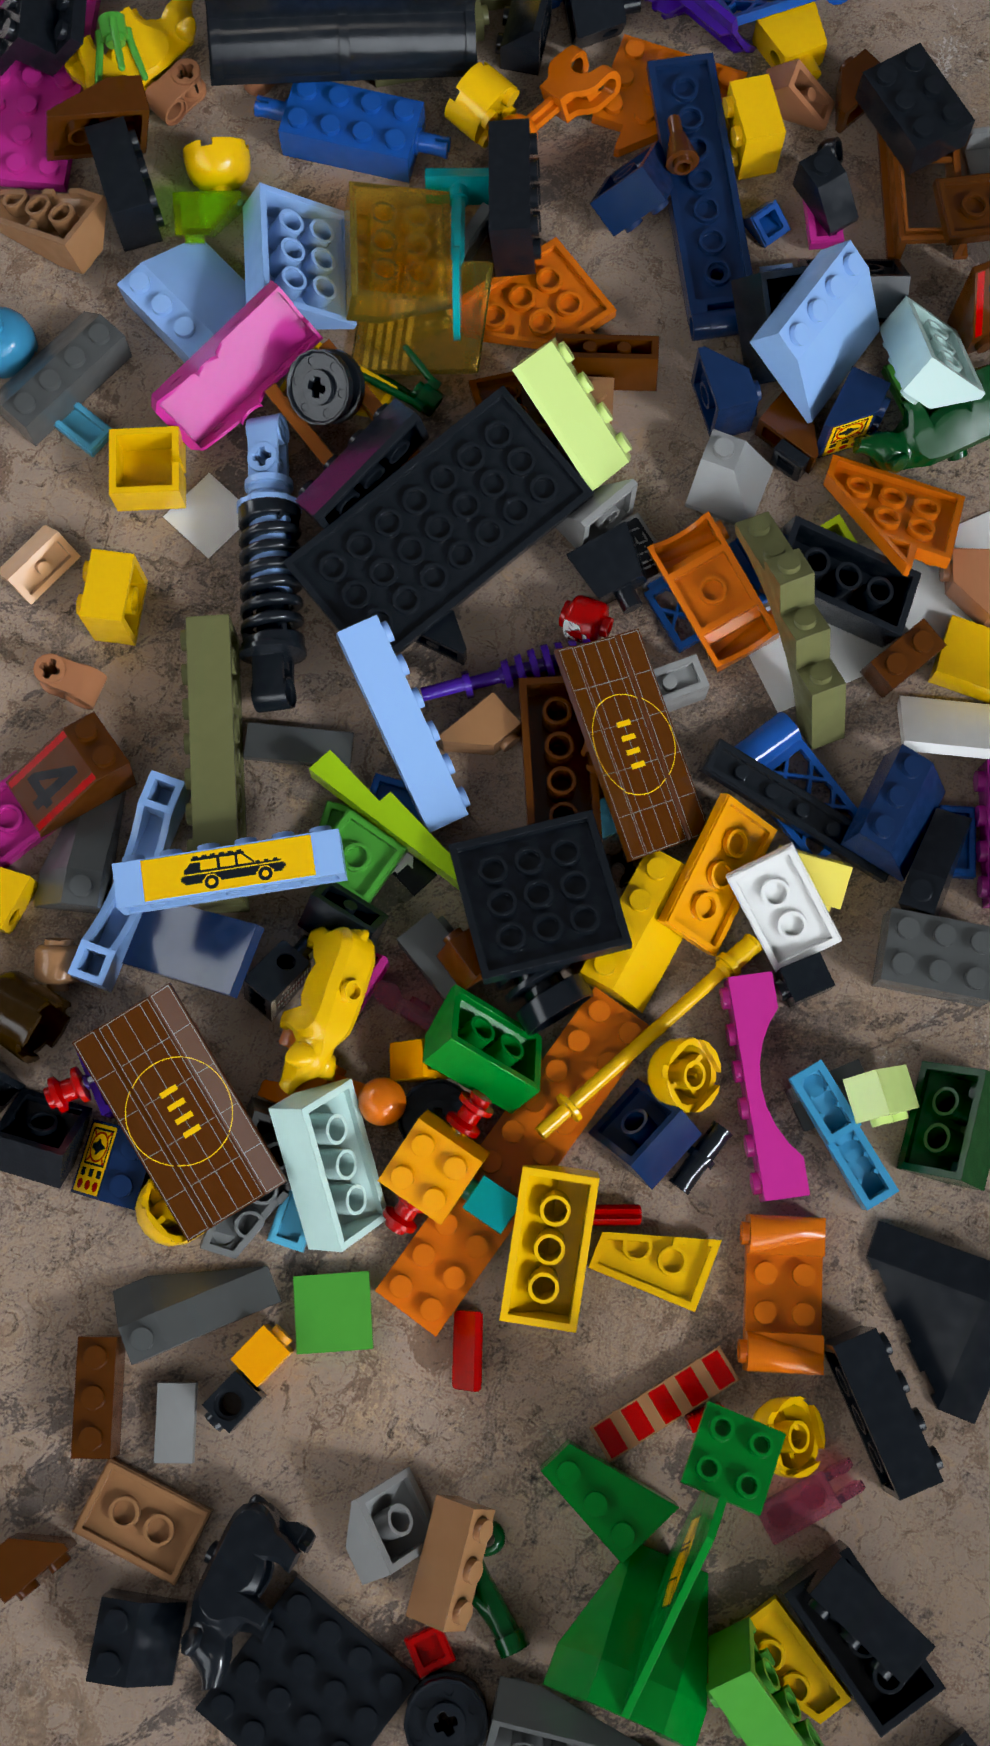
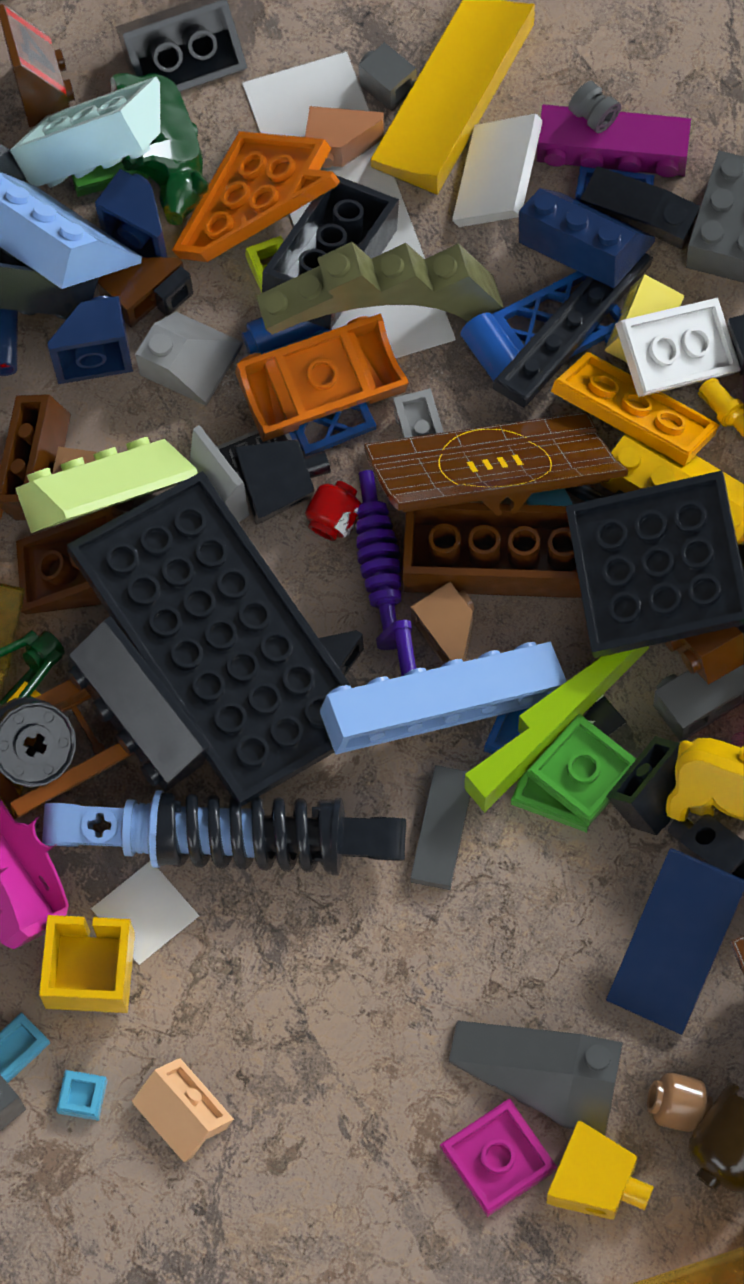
camera: 80 degrees left, 10 degrees down
(47, 486) = (82, 1095): none -> medium azure tile
(71, 775) = (459, 1071): reddish brown slope -> none
(75, 681) = (341, 1068): nougat piece -> none
(112, 596) = (247, 1009): yellow brick -> none
(153, 830) = (647, 1038): light blue arch -> none
(214, 739) = (464, 904): olive brick -> none
(229, 871) = (609, 871): brick -> none
(903, 658) = (421, 211): reddish brown brick -> none

